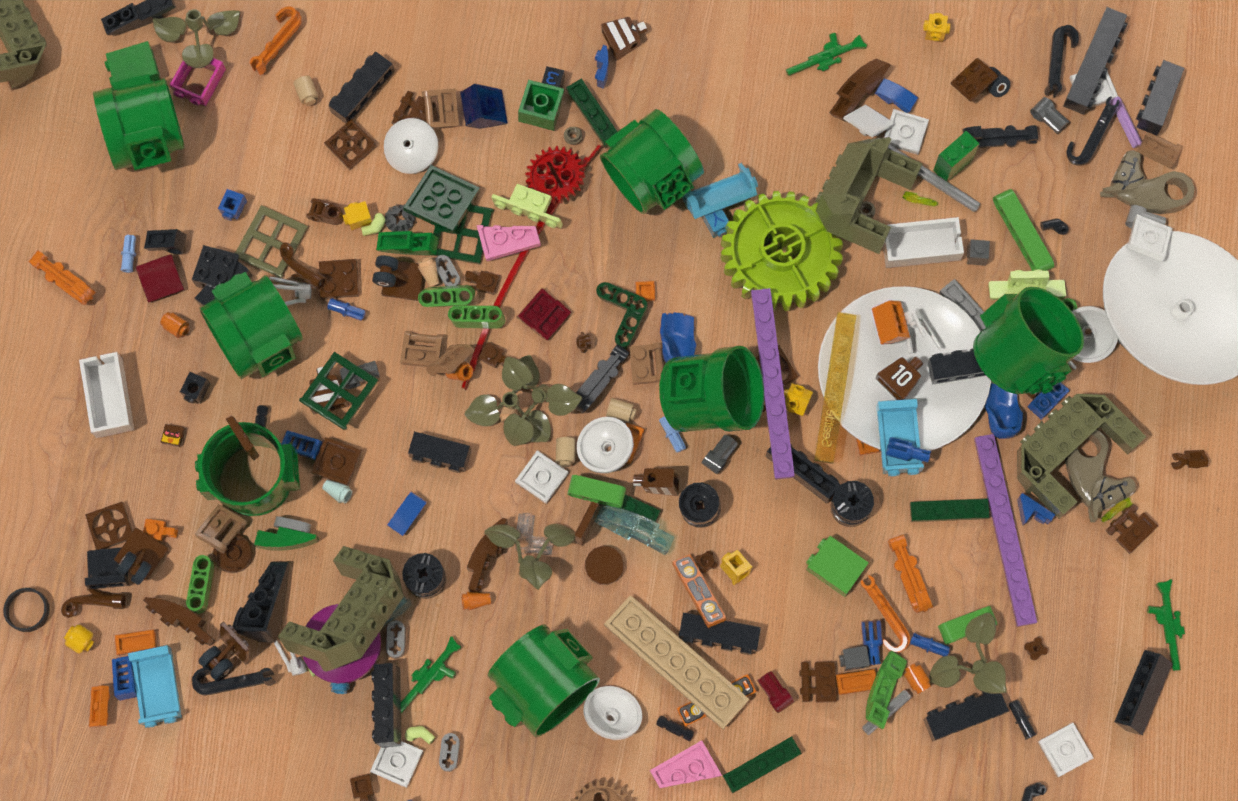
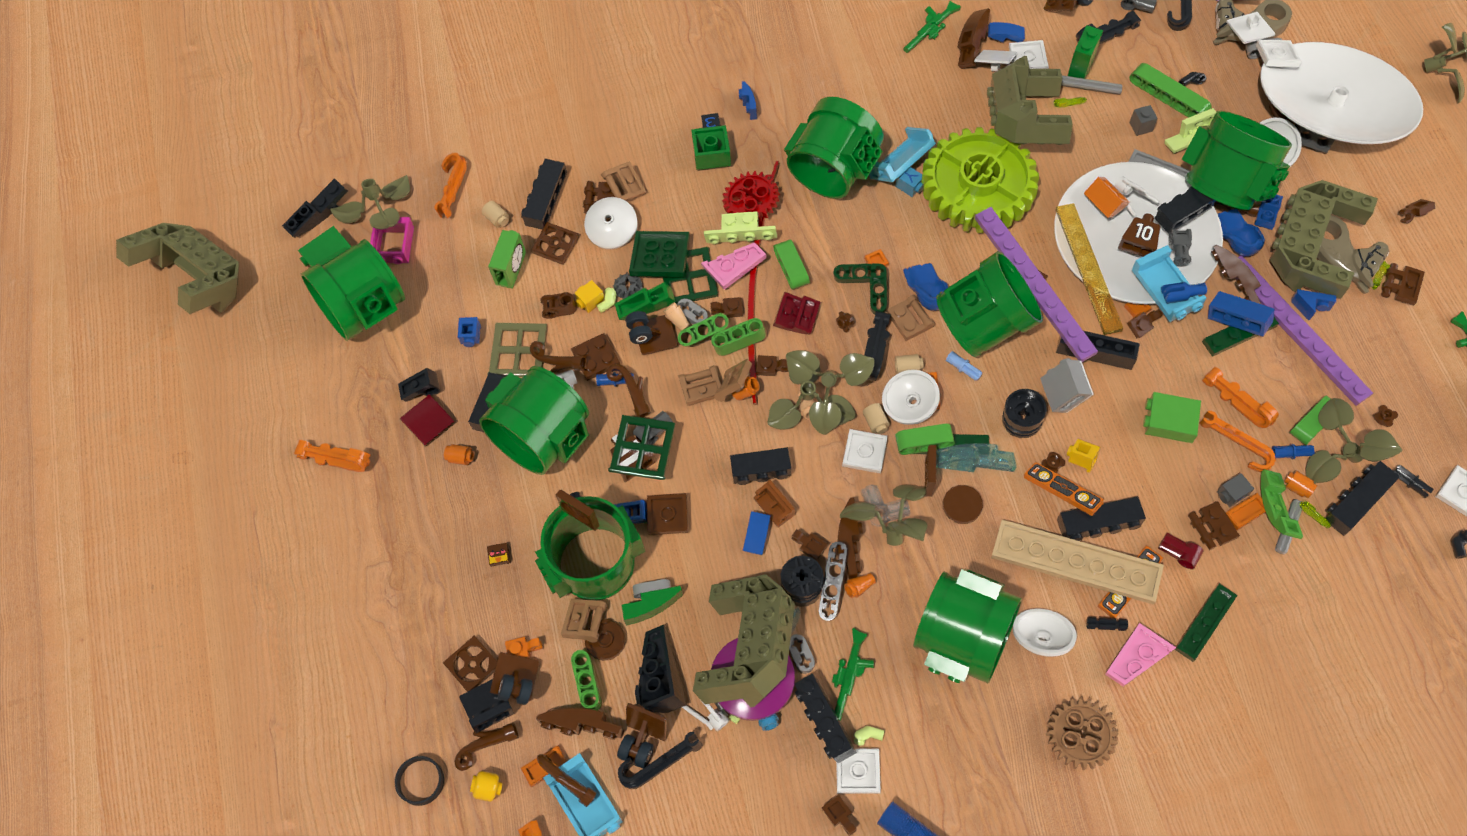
camera: 20 degrees left, 10 degrees down
(106, 395) = (419, 542): white piece -> none
(125, 690) = (554, 818): blue slope -> none
(128, 254) = (388, 411): light blue axle -> none
(157, 682) = (584, 794): none -> reddish brown plant
(194, 380) = (499, 495): black brick -> none
(214, 267) = (475, 387): black bracket -> none
(296, 145) = (507, 259): none -> bright green brick
(340, 492) = (682, 539): light aqua cone -> none
(358, 329) = (635, 389): none -> reddish brown plant
(435, 493) = (774, 503): none -> dark orange hinge
(450, 546) = (811, 545): none -> reddish brown plate
(454, 589) = (830, 580): none -> beam
(454, 752) = (900, 741): light grey beam -> none
(483, 106) = (659, 168): clear blue slope -> none
(561, 261) = (791, 264): none -> bright green beam
(572, 130) = (749, 158): dark tan plate -> none
(591, 111) = (757, 138): dark green plate -> none
(622, 36) = (753, 71): reddish brown torso -> none
(665, 481) = (975, 408): reddish brown torso -> none
(716, 458) = (1015, 368): dark grey piece -> none
(751, 495) = (1066, 385): none -> light grey piece
(797, 399) = (1062, 289): yellow brick -> none
(841, 506) = (1157, 358): black wheel -> none
(860, 462) = (1143, 323): none -> reddish brown plate
(872, 645) = (1239, 464): blue arm -> none
(912, 707) = (1311, 511): none -> clear neon green piece
(923, 243) = (1098, 129): white piece -> none
(935, 400) = (1180, 244): none -> dark grey connector
(955, 493) = (1241, 313): none -> blue brick
(973, 446) = (1233, 268): none -> reddish brown slope
(1138, 197) = (1250, 27): none -> white piece

